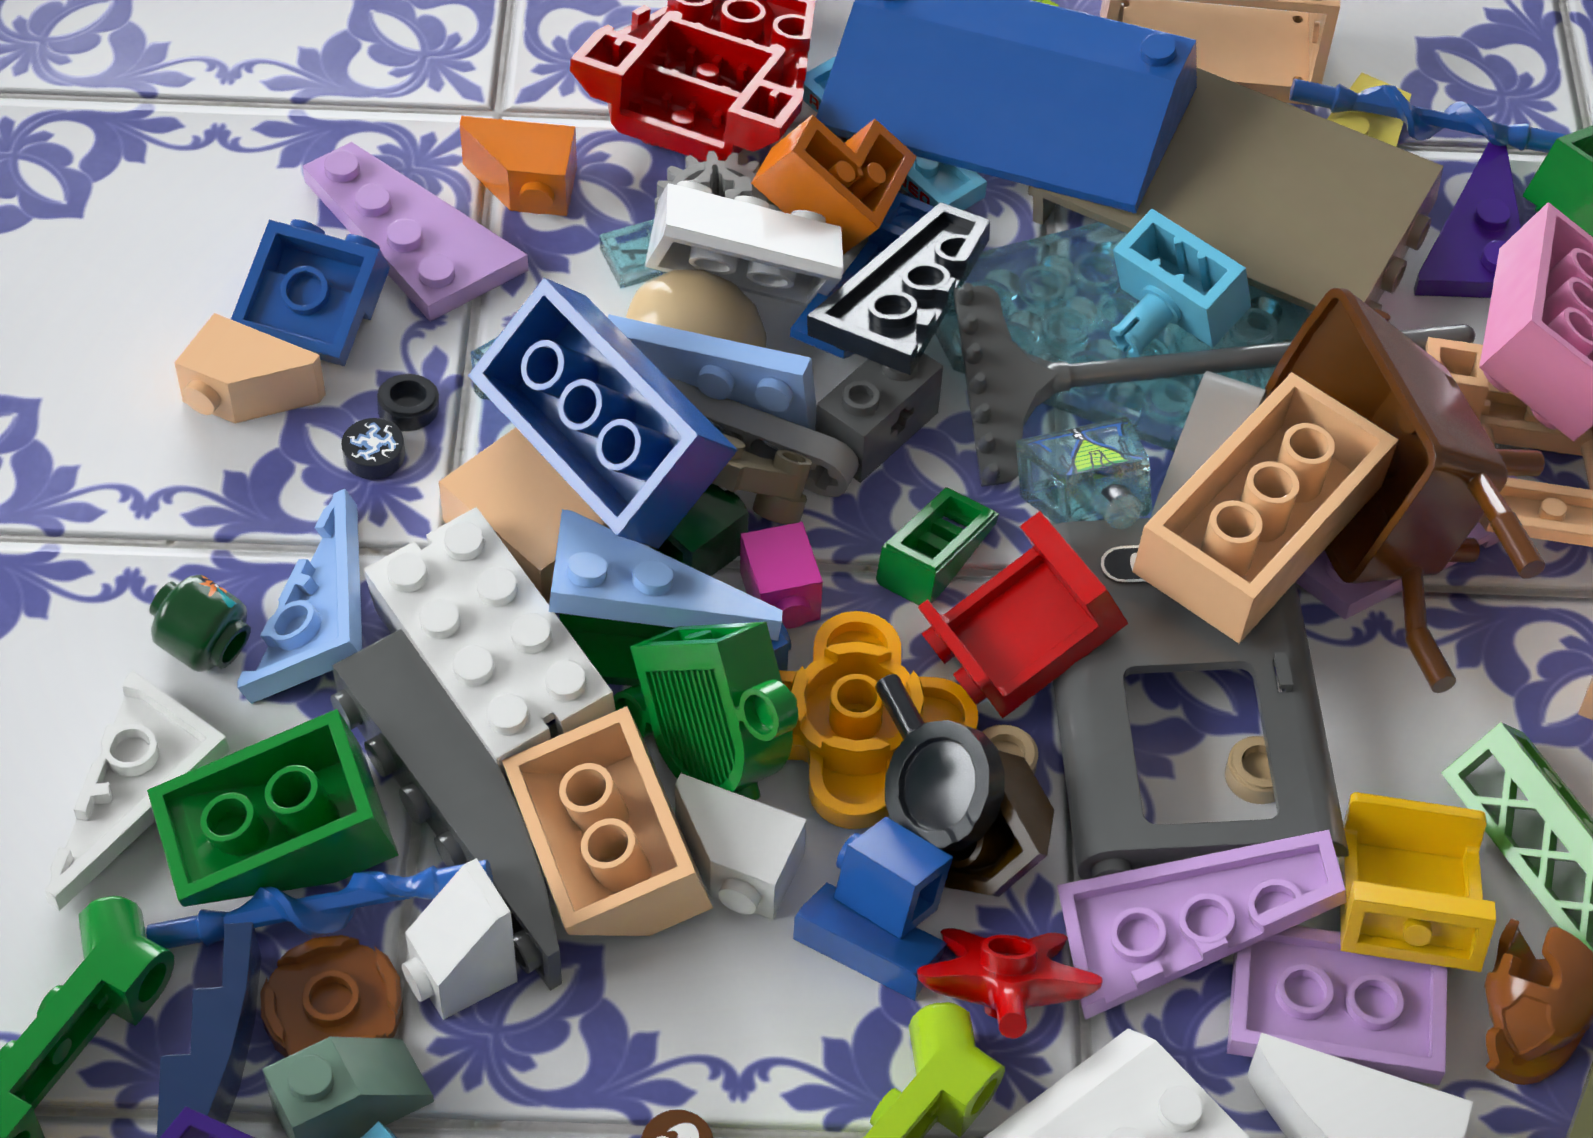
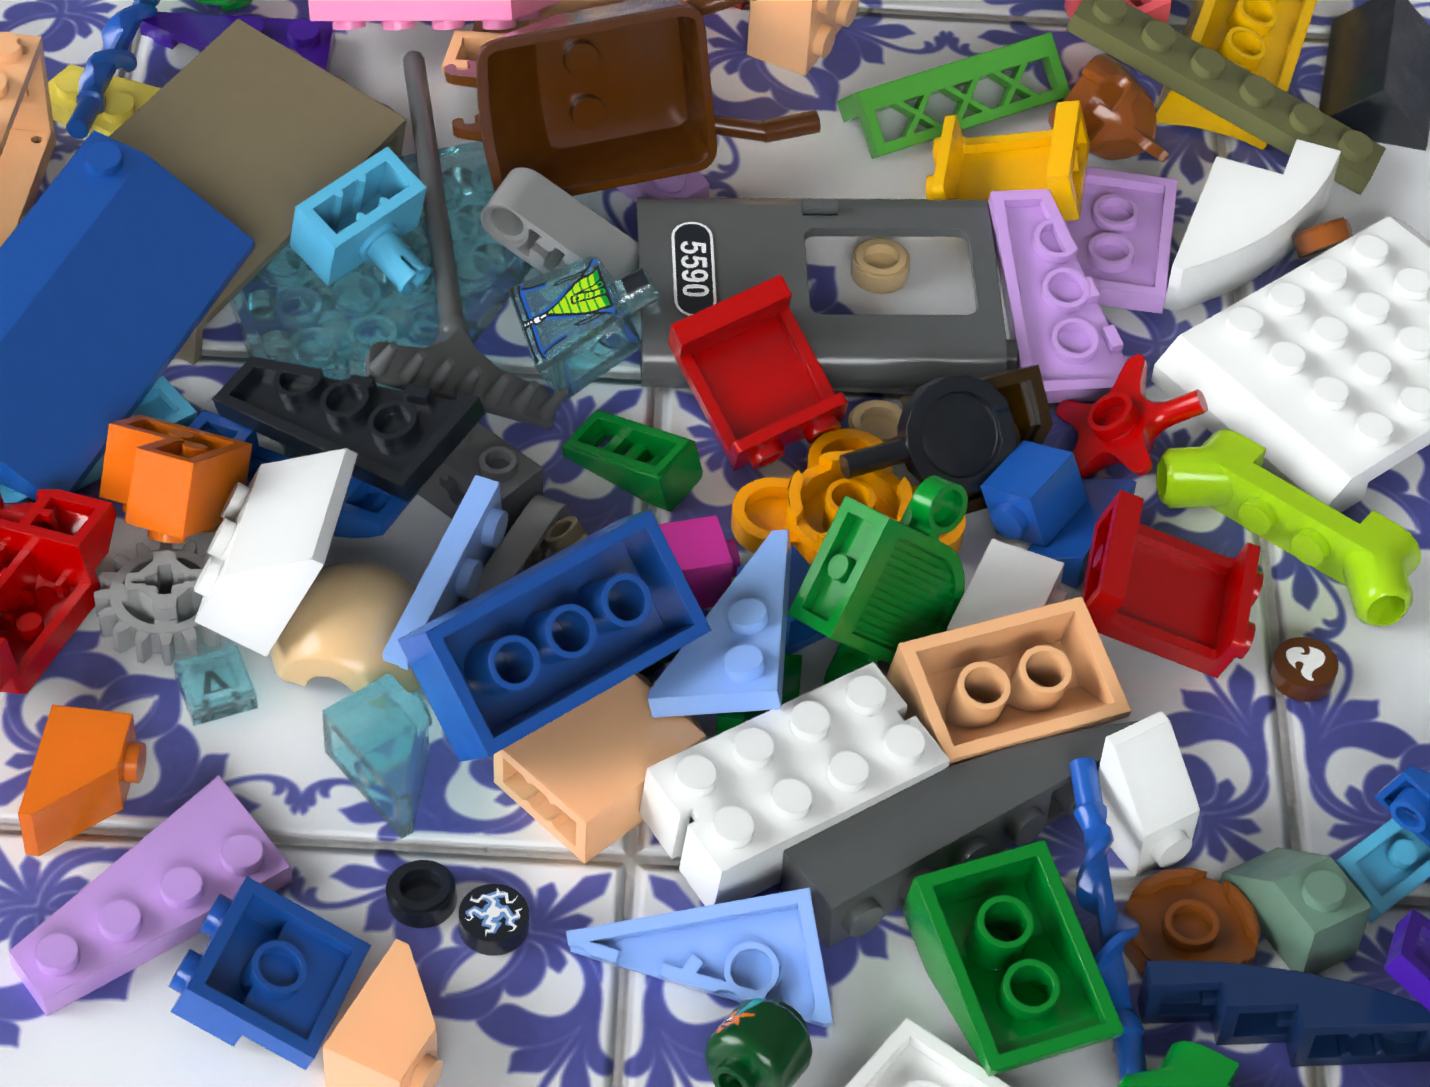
camera: 90 degrees left, 5 degrees down
(757, 993) = (1169, 591): none -> red panel
(1264, 507) = (669, 174): light nougat brick -> none

